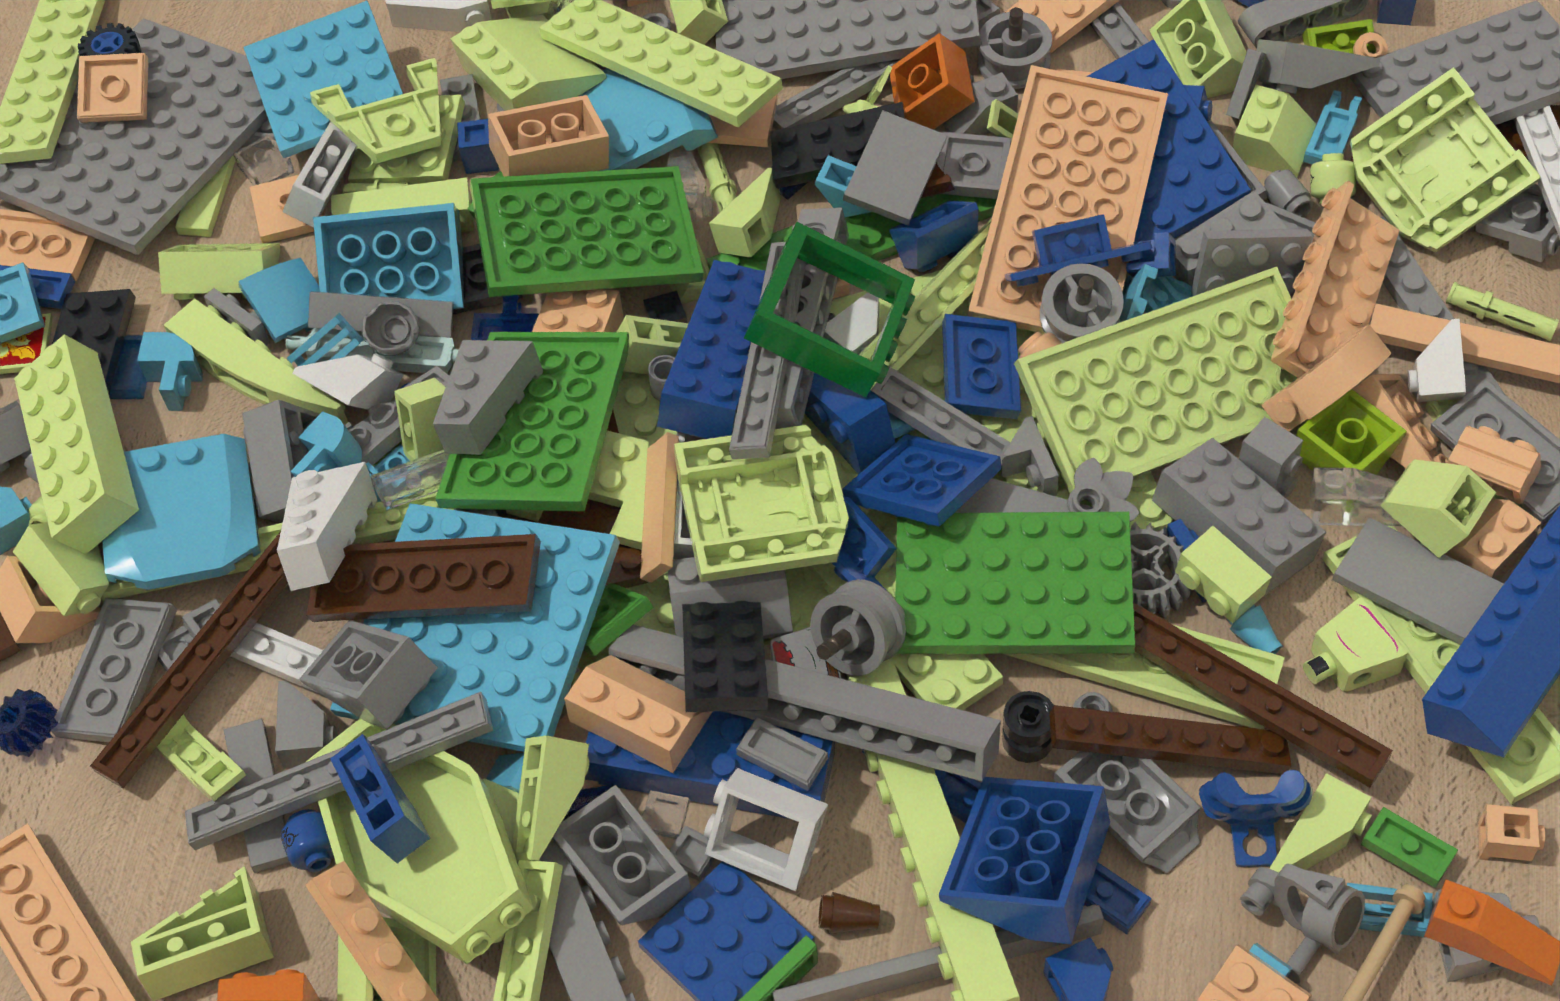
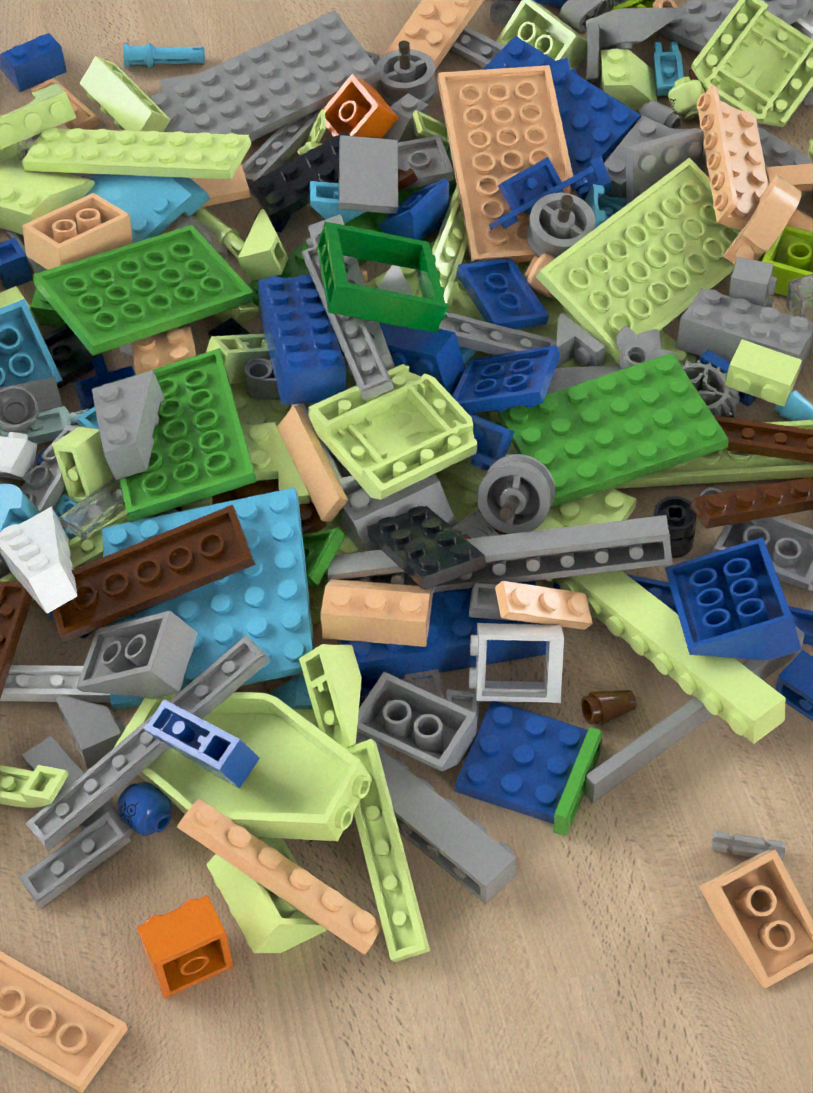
camera: 25 degrees left, 5 degrees down
(205, 941) = (97, 914): yellowish green wedge -> none
(214, 868) = (74, 859): none -> light grey tile
(817, 775) = (543, 605): none -> light nougat plate

